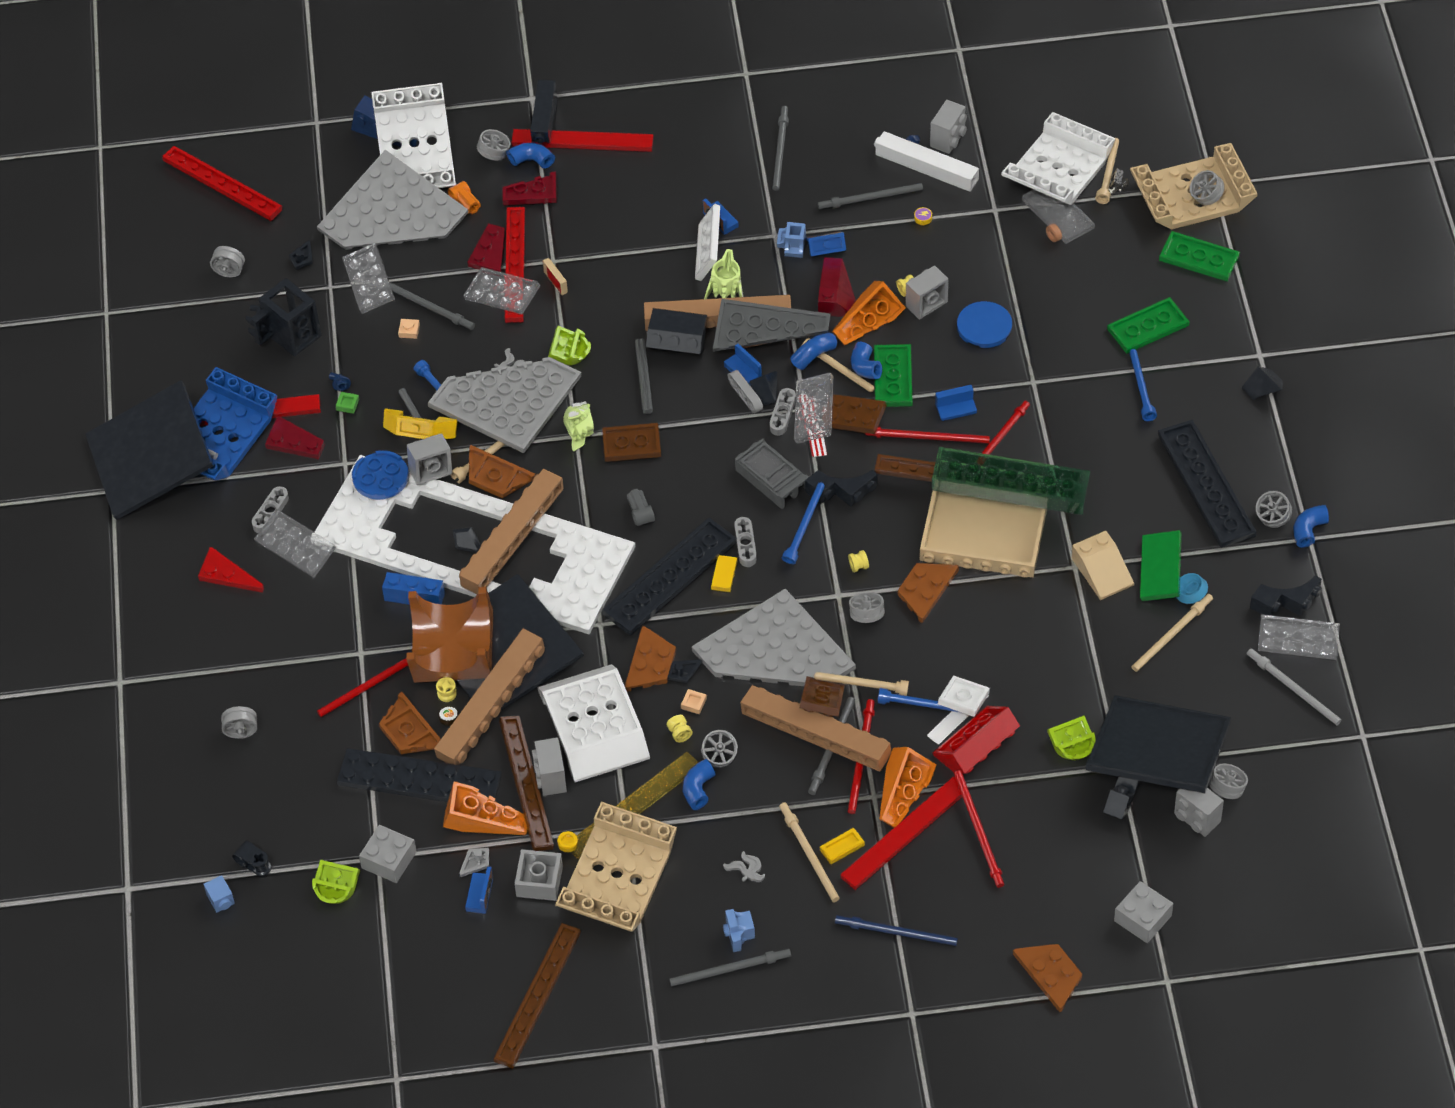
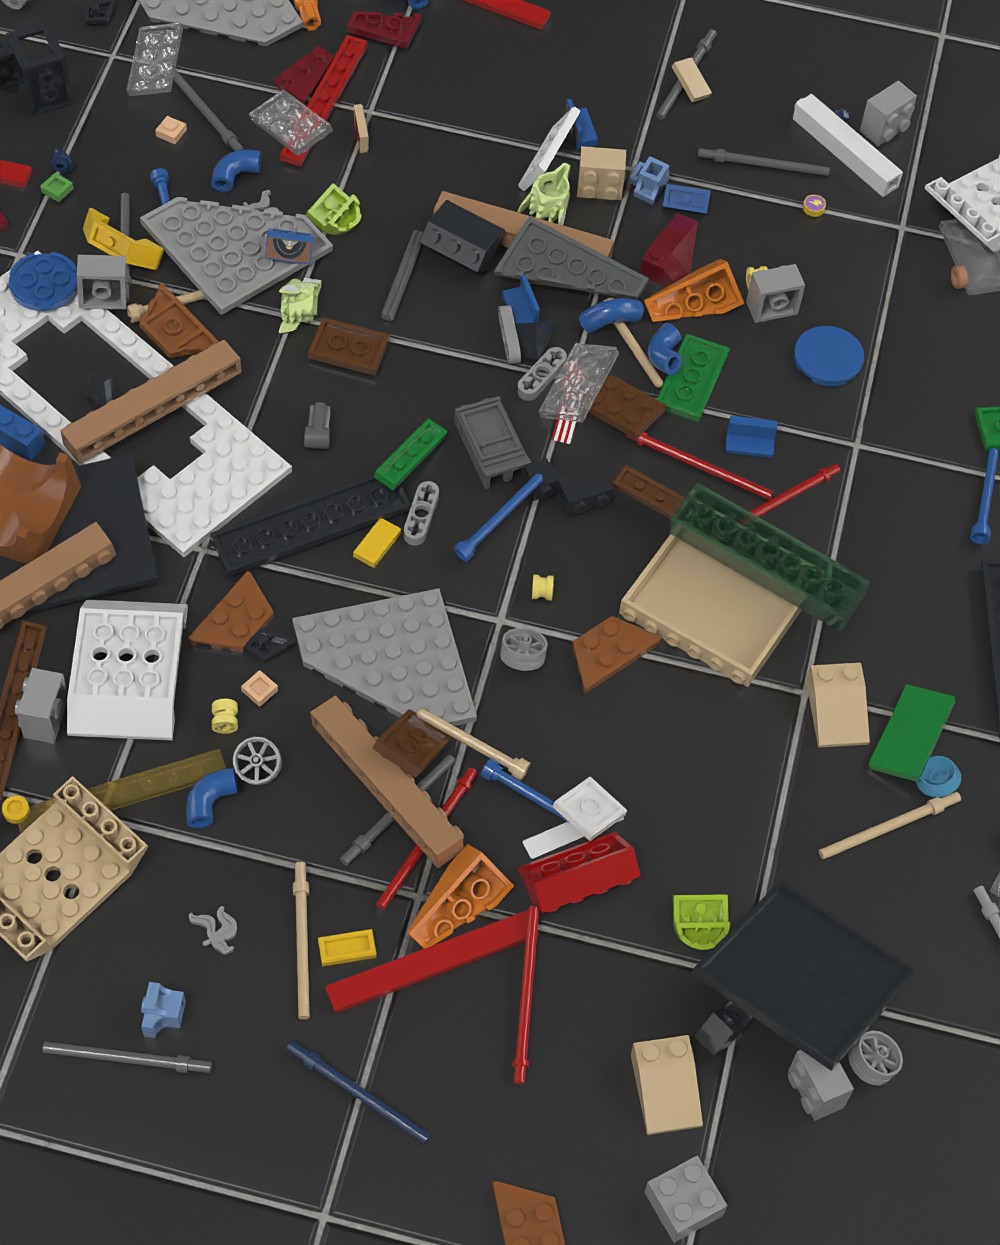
camera: 15 degrees right, 5 degrees up
(472, 339) = (234, 164): none -> blue cylinder
(551, 383) = (289, 246): none -> panel
(718, 502) = (410, 454): none -> green plate
(756, 247) = (601, 173): none -> tan brick
(787, 151) = (691, 79): none -> tan tile
(1098, 848) = (667, 1084): none -> tan slope

